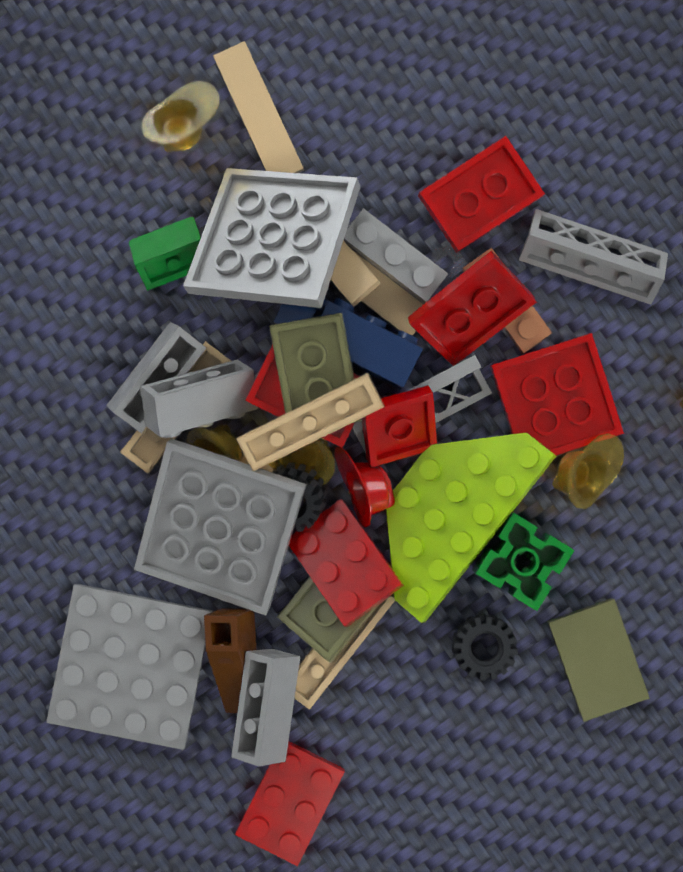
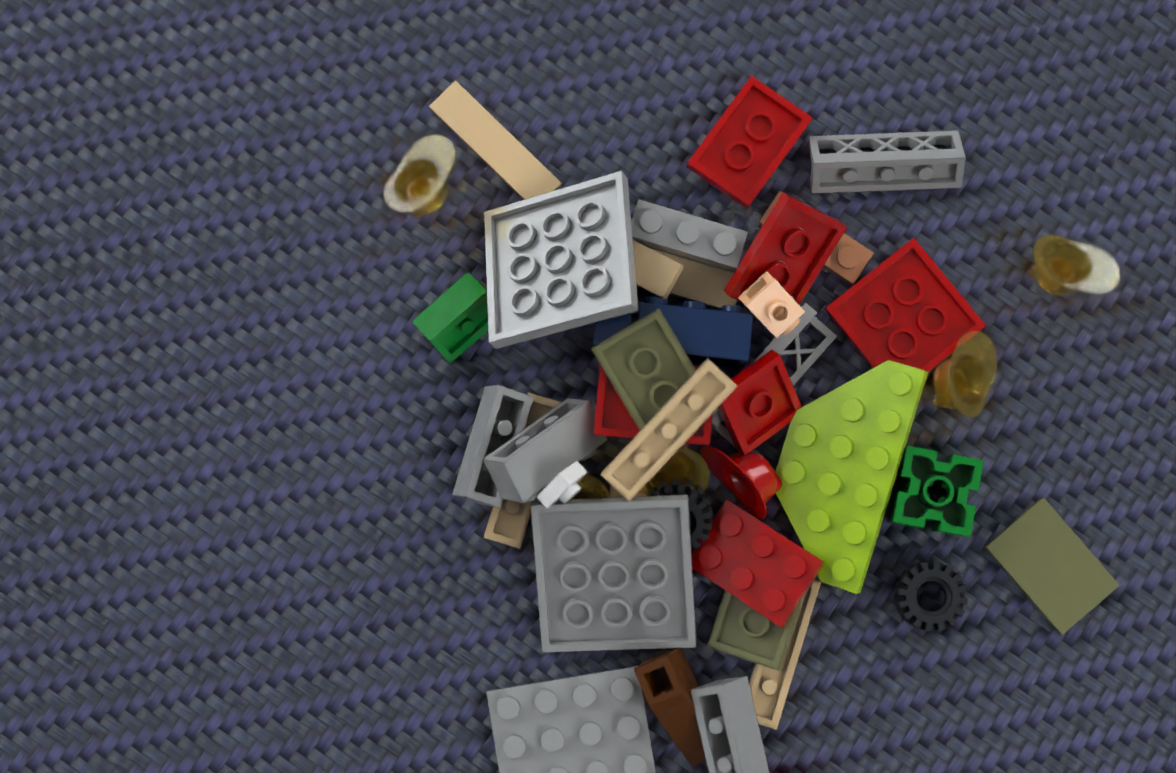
camera: 15 degrees left, 5 degrees down
(200, 436) = (563, 486): none -> white plate
(443, 346) = (772, 305): none -> light nougat brick

